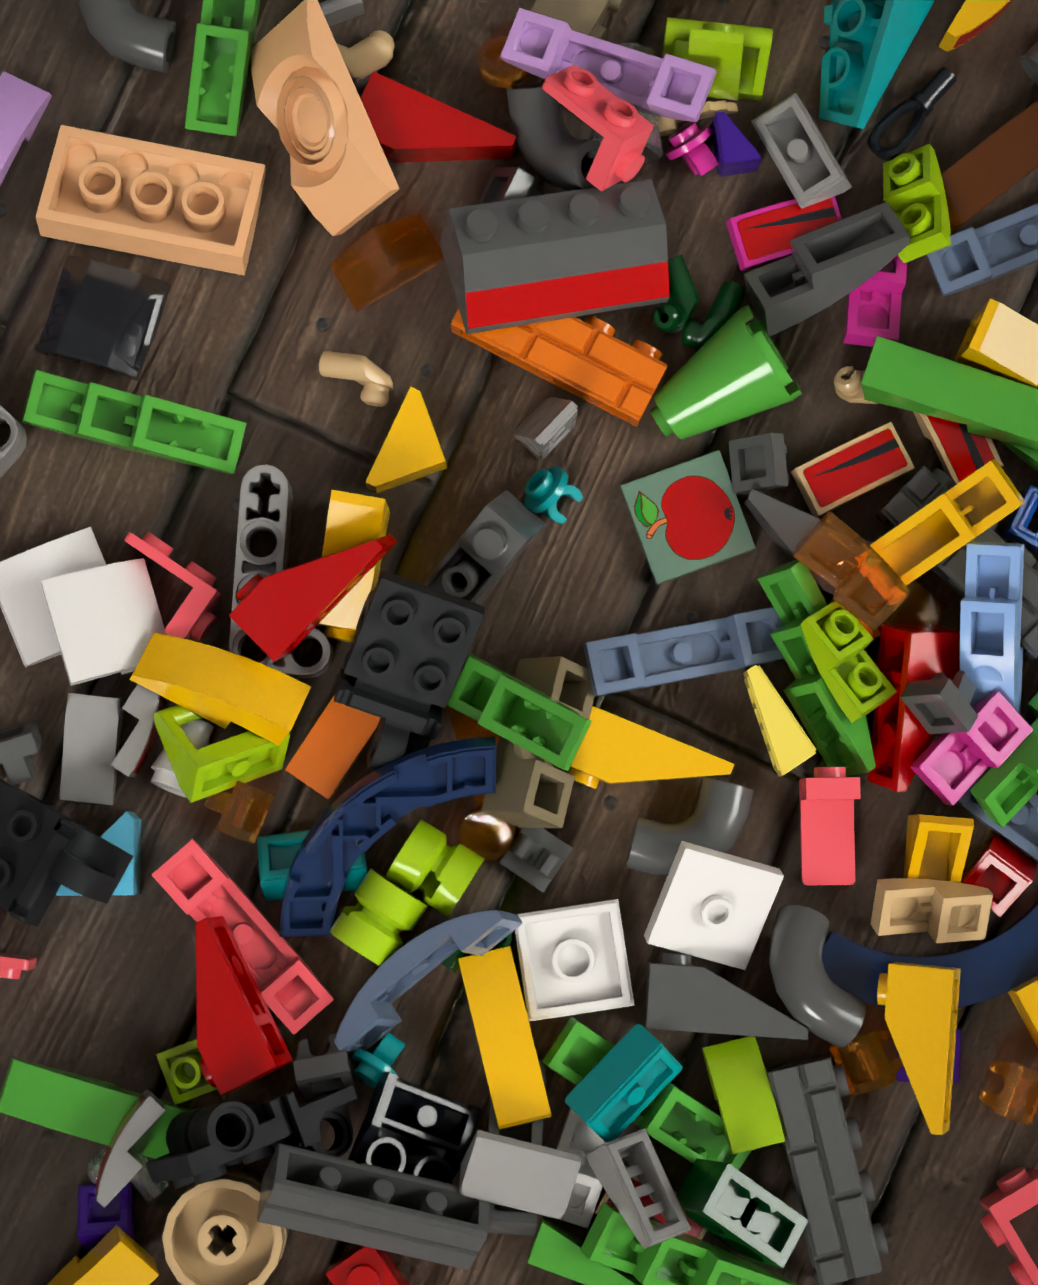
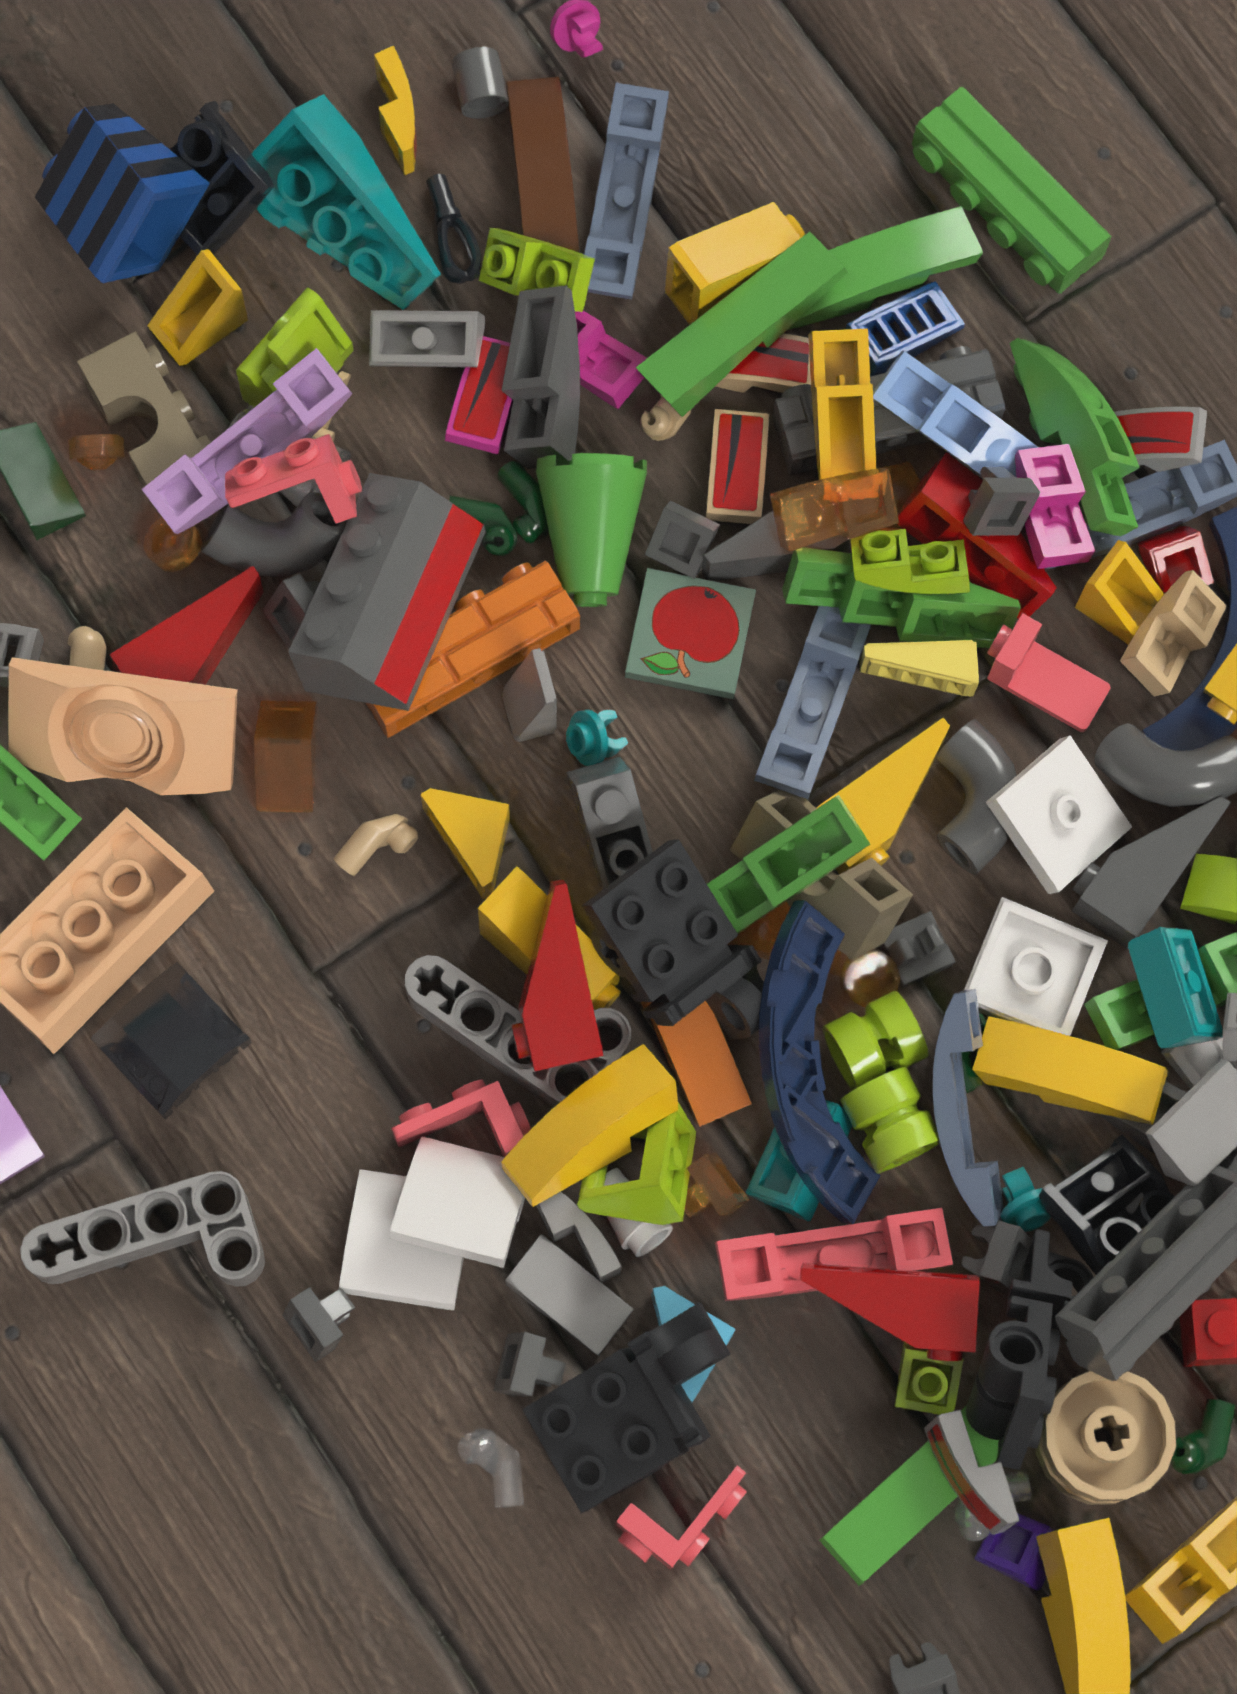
camera: 60 degrees left, 10 degrees down
(133, 422) = (286, 1071): bright green slope -> none
(690, 145) = (360, 428): dark pink plate -> none
(732, 148) = (382, 394): dark purple slope -> none

